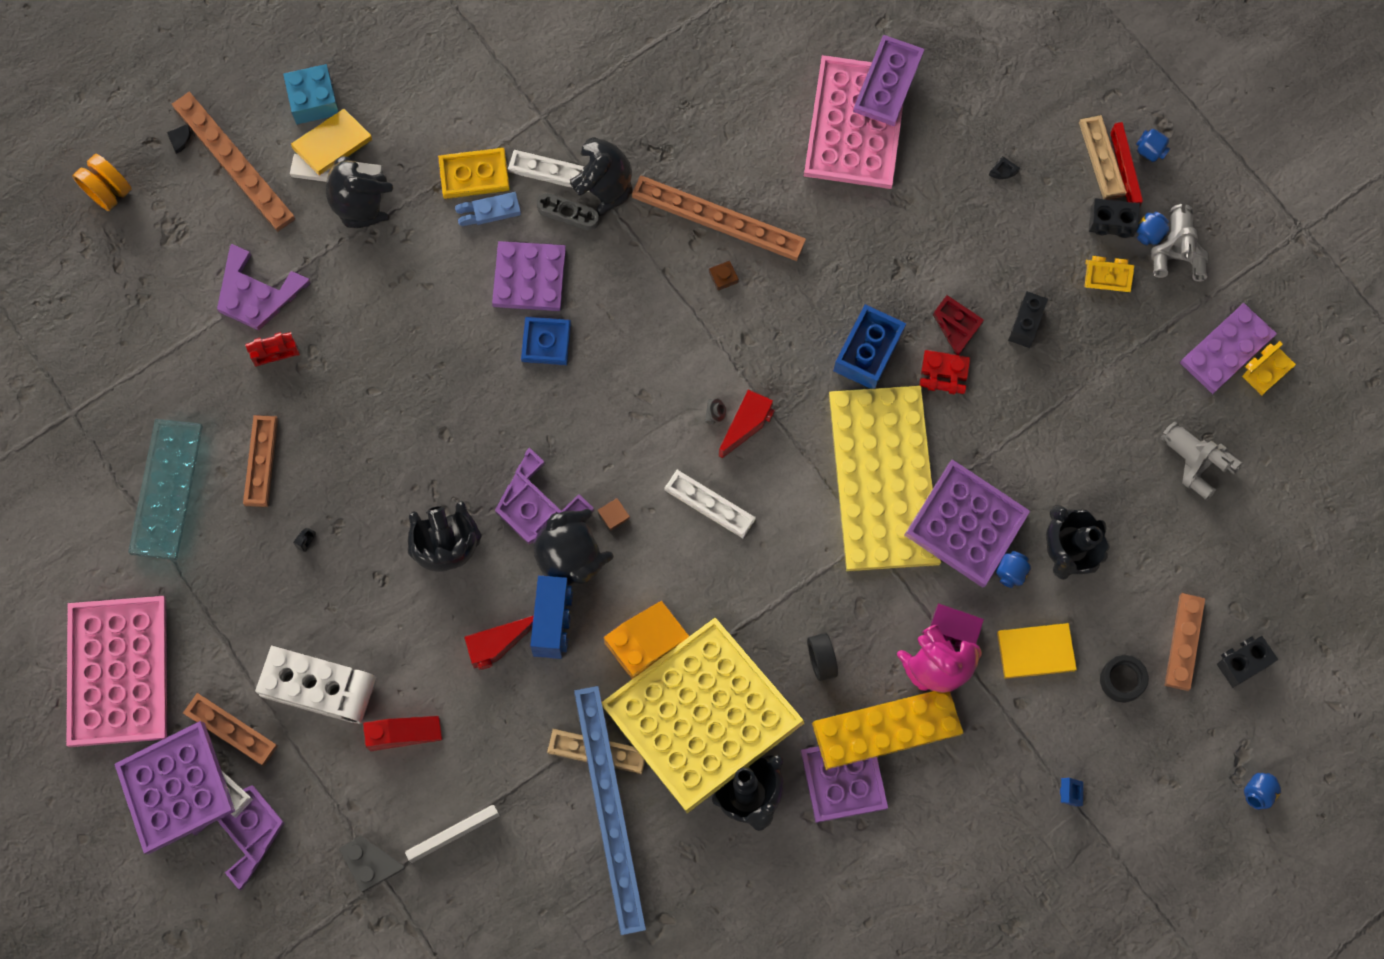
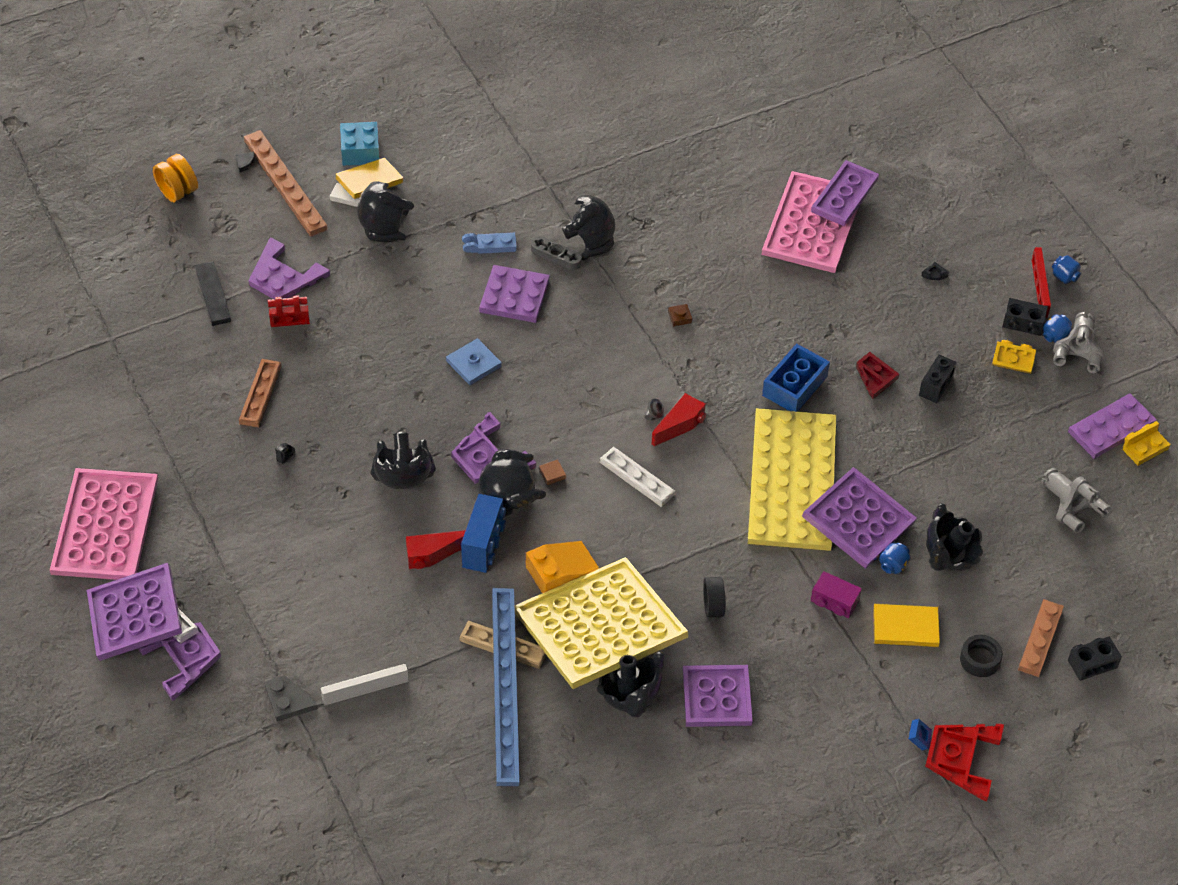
camera: 10 degrees right, 20 degrees down
(165, 489) = (176, 400): clear light blue plate -> none
(178, 332) = (213, 293): none -> black tile
(230, 729) = (192, 581): nougat plate -> none
(346, 705) = (270, 556): white hinge -> none
(401, 732) = (335, 603): red slope -> none
(473, 173) = (482, 216): yellow tile -> none
(498, 378) = (473, 361): none -> medium blue plate
(543, 168) = (542, 221): white tile -> none
(546, 341) = (519, 341): blue tile -> none
(718, 218) = (684, 273): nougat plate -> none
(886, 728) = (762, 660): yellow plate -> none
(938, 664) = (816, 613): dark pink piece -> none
(945, 366) = (859, 405): red plate -> none
(1102, 157) = (1022, 273): tan tile -> none
(1110, 808) = (953, 752): none -> red wing
(1262, 791) = (1094, 759): blue head -> none

